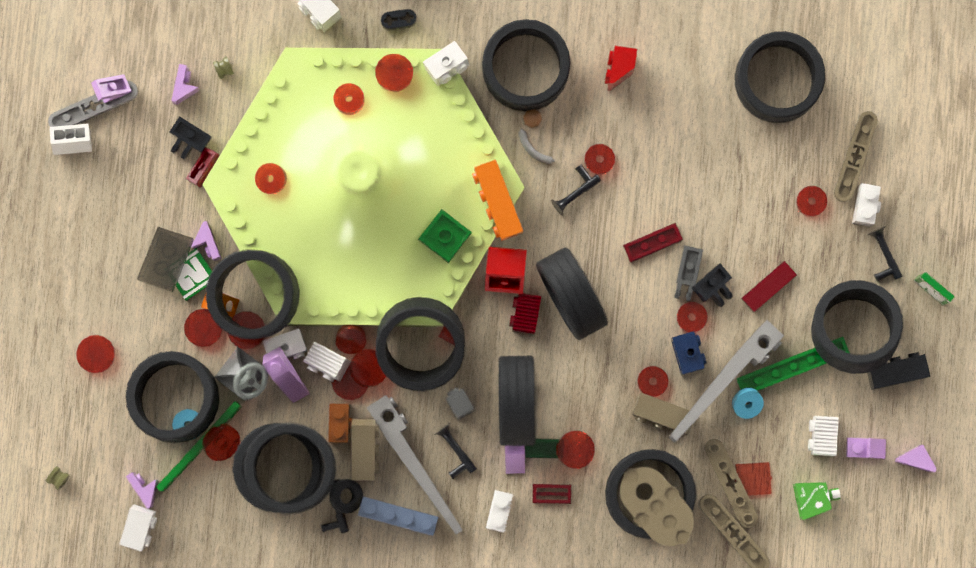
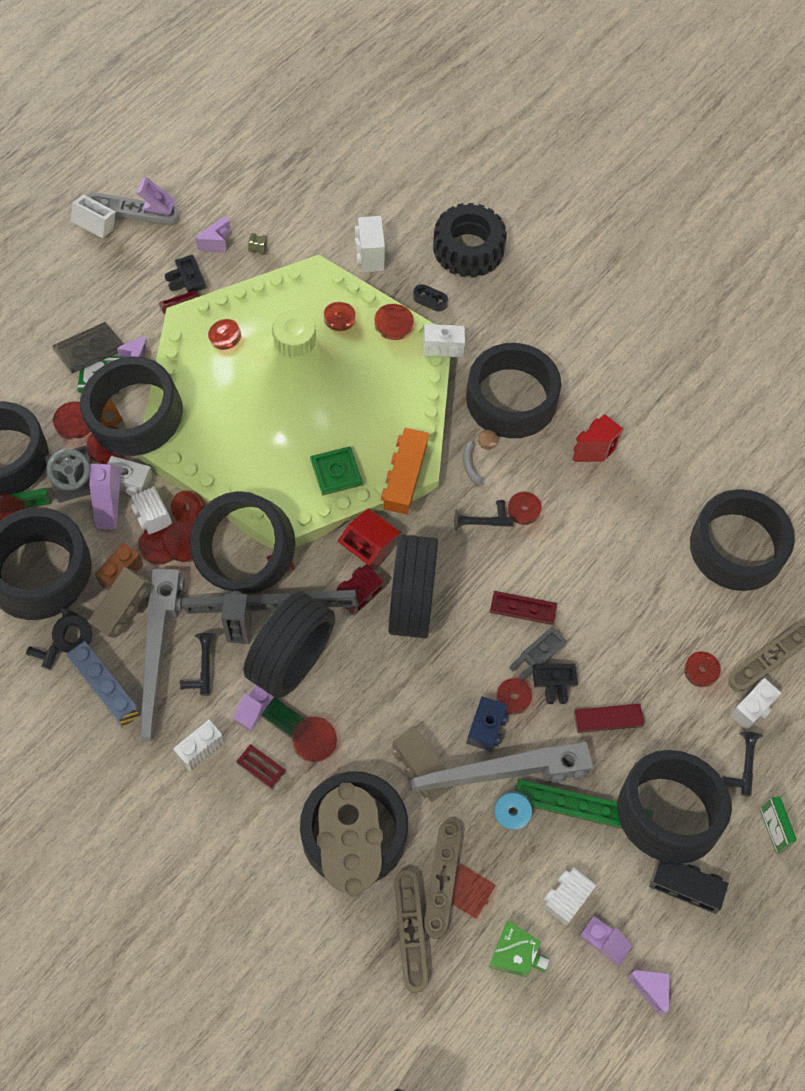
camera: 35 degrees right, 20 degrees down
(471, 372) = (269, 601): none -> dark grey tile
(661, 381) = (439, 720): clear red piece -> none

